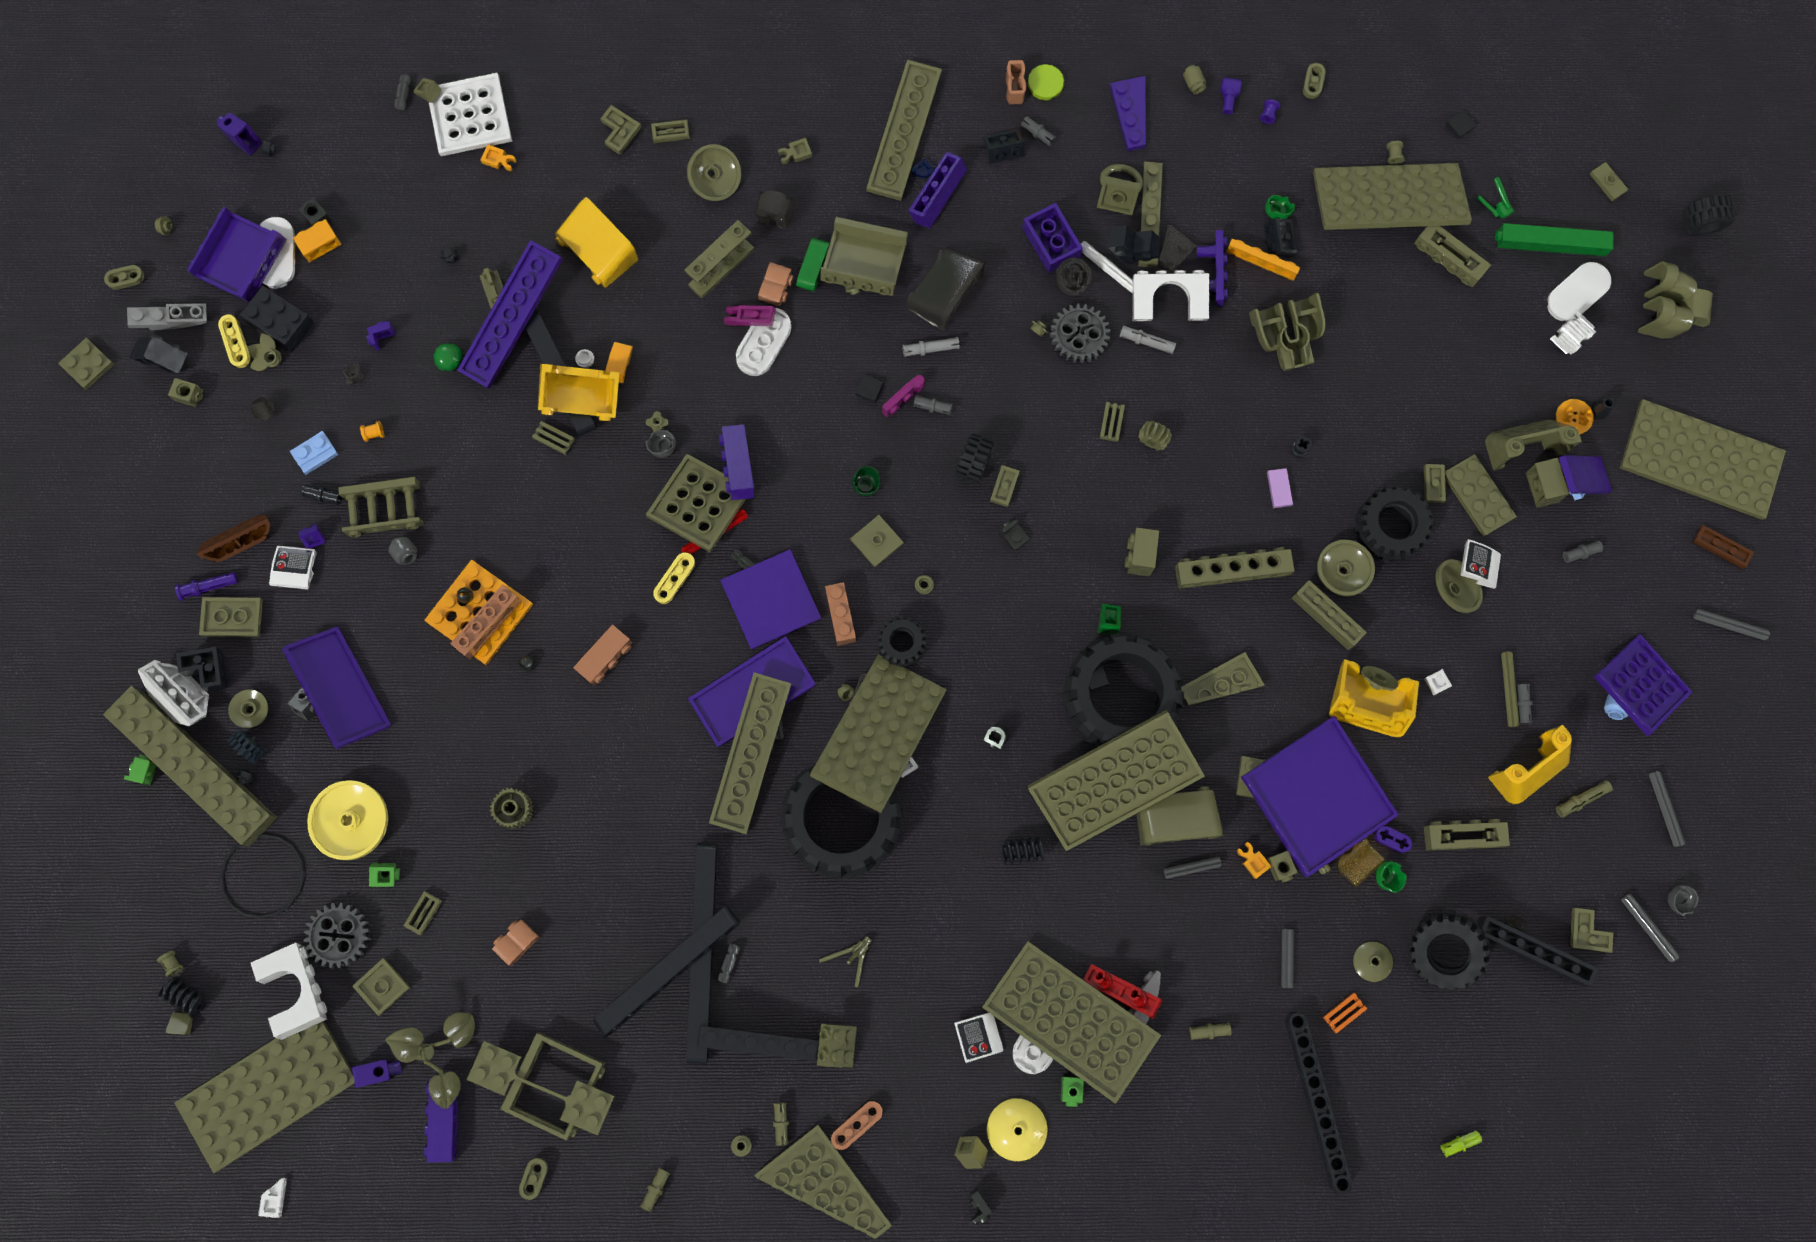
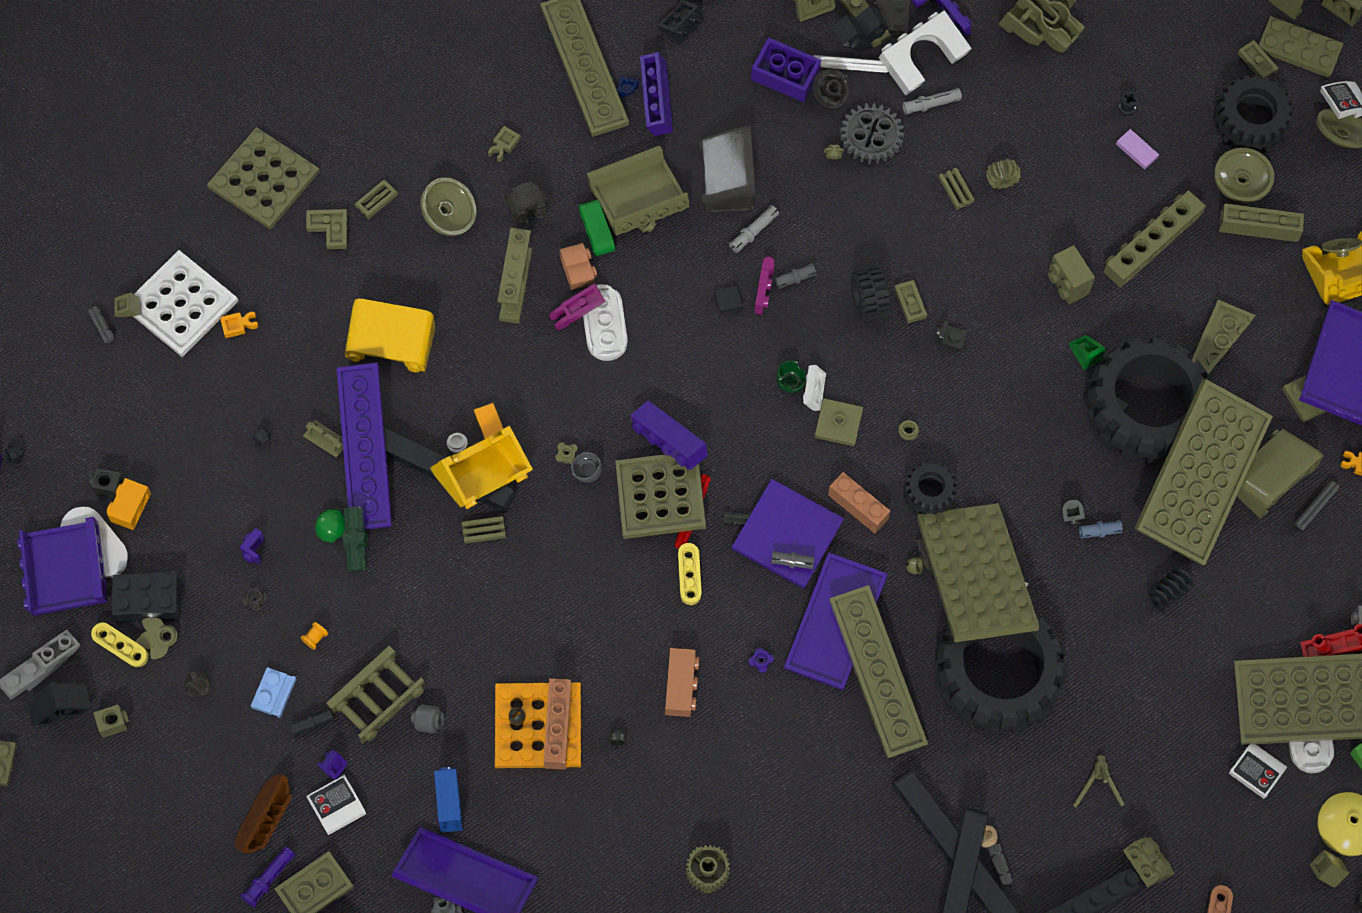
camera: 35 degrees left, 10 degrees down
(367, 621) = (448, 800): none -> blue window
(453, 379) = (355, 539): none -> clear green piece
(595, 69) = (261, 166): none -> olive piece
(676, 675) = (761, 654): none -> dark purple plate
(736, 936) = (990, 836): none -> tan tile
(755, 622) = (792, 560): none -> dark grey pin
(878, 502) = (814, 388): none -> white plate
(1008, 765) = (1100, 529): none -> sand blue pin

